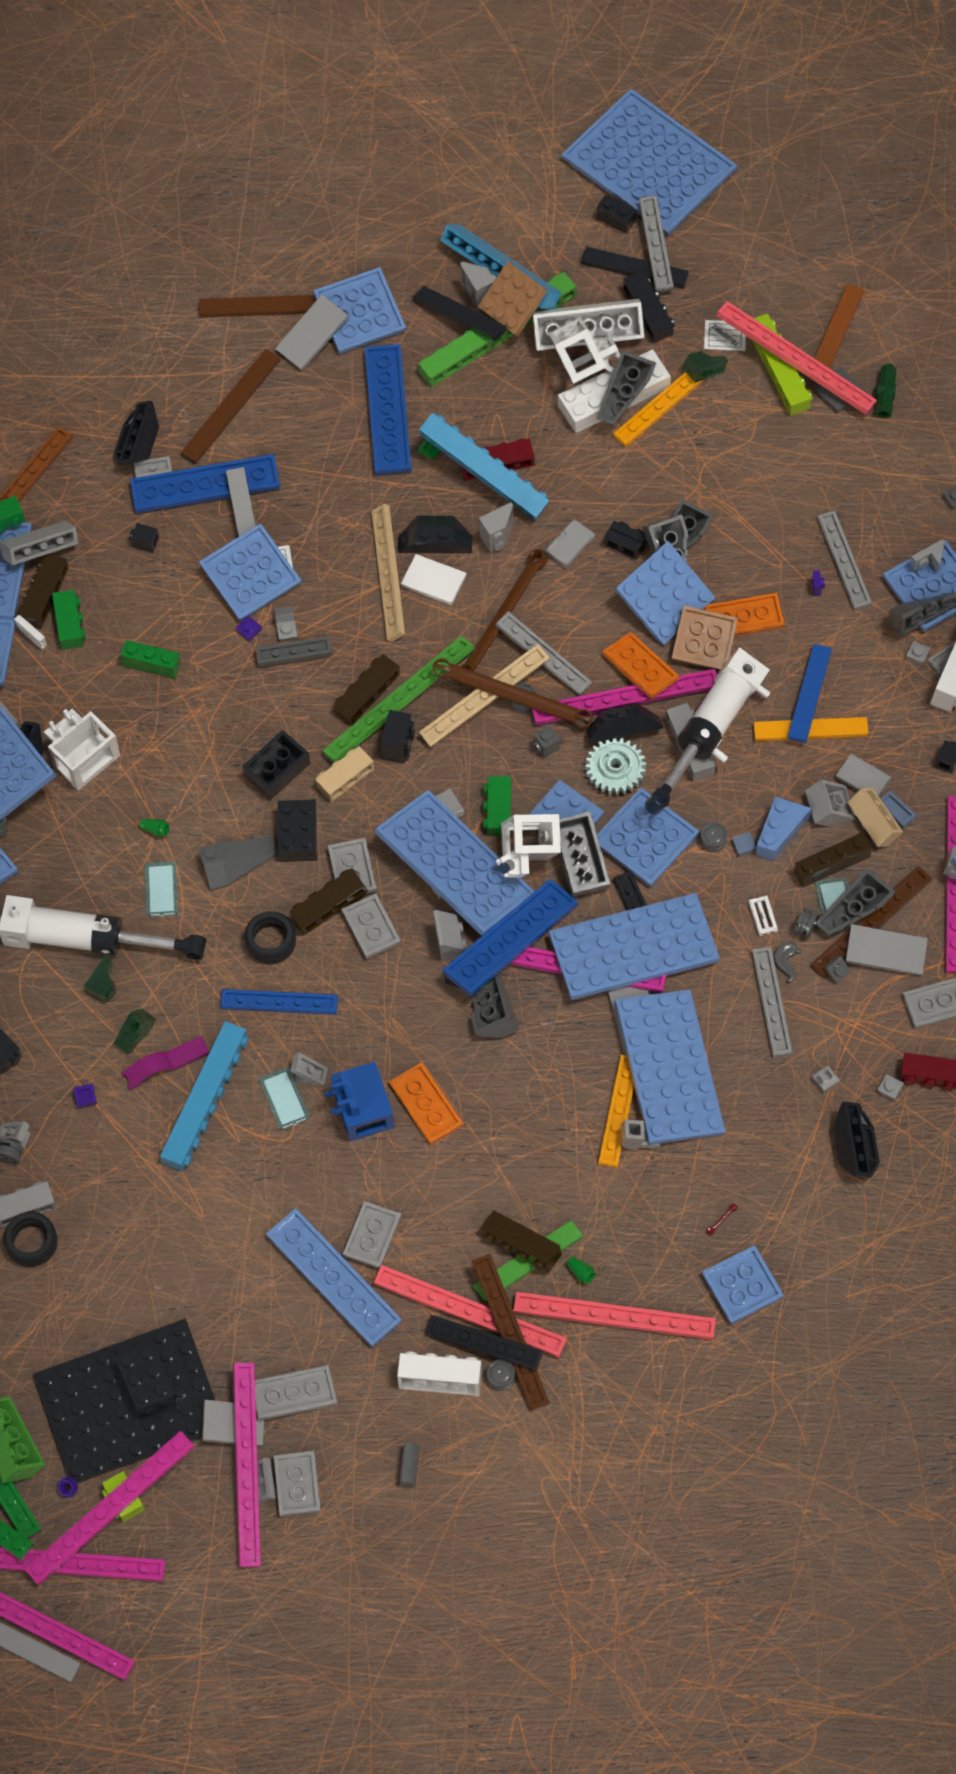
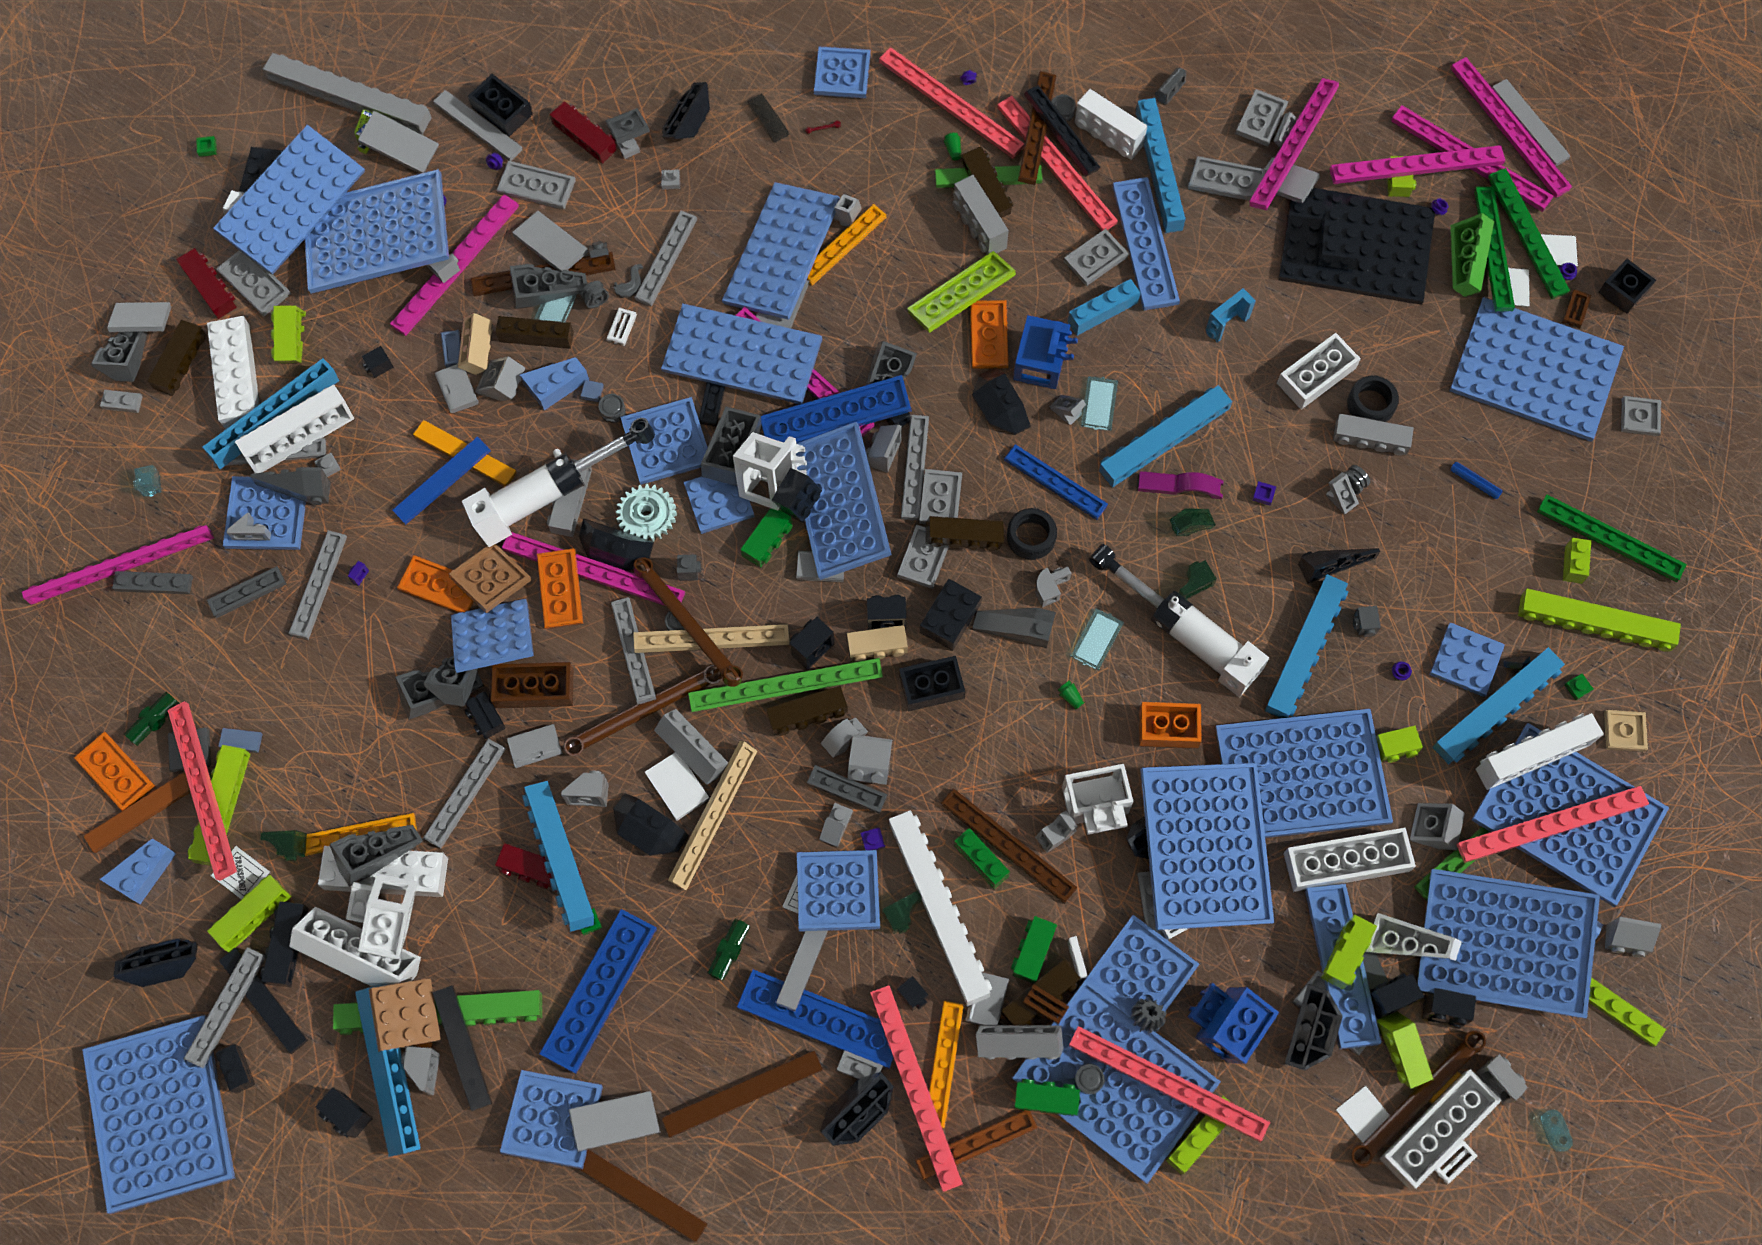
camera: 150 degrees left, 5 degrees up
(33, 575) = (1031, 995): none -> reddish brown tile
(56, 844) = (1170, 725): none -> orange brick
(84, 567) = (988, 1010): none -> light grey piece
(91, 508) = (945, 1058): none -> light orange tile
(96, 1236) = (1318, 371): none -> white brick
(101, 476) = (916, 1089): none -> coral plate
(103, 709) = (1057, 832): none -> light grey brick
(136, 686) = (1009, 846): none -> reddish brown tile
(162, 605) = (939, 908): none -> white brick
(192, 585) = (899, 913): none -> clear green arch
(206, 1256) = (1239, 304): none -> dark azure panel
(230, 903) = (1046, 585): none -> light grey brick
(286, 673) = (869, 759): none -> light grey slope
(308, 488) = (728, 950): none -> dark green piece
(321, 685) = (841, 736): none -> light grey brick
(333, 1185) = (1103, 307): none -> dark azure brick
(350, 794) = (886, 611): none -> black brick
(367, 1366) = (1161, 167): none -> dark azure brick
(376, 1042) = (1000, 402): none -> black wedge
(413, 944) = (915, 467): none -> light grey tile
(441, 607) = (691, 746): none -> light grey brick
(475, 1123) = (961, 291): none -> lime plate
(489, 837) = (797, 495): none -> black brick
(495, 1194) = (980, 216): none -> light grey brick
(512, 228) = (343, 1112): none -> black brick
(595, 581) = (532, 685): none -> reddish brown brick
(598, 481) = (464, 793): none -> light grey tile
(614, 1352) = (968, 77): none -> dark purple plate
(691, 309) = (248, 913): none -> lime brick
(733, 242) = (157, 962): none -> black wedge
(781, 1196) = (768, 118): none -> clear smoke plate
(798, 287) = (140, 870): none -> medium blue wedge
(805, 418) = (242, 739): none -> sand blue tile
(882, 344) = (114, 771): none -> orange tile
(895, 520) = (246, 592): none -> dark grey plate
(904, 1103) = (627, 126): none -> dark grey tile

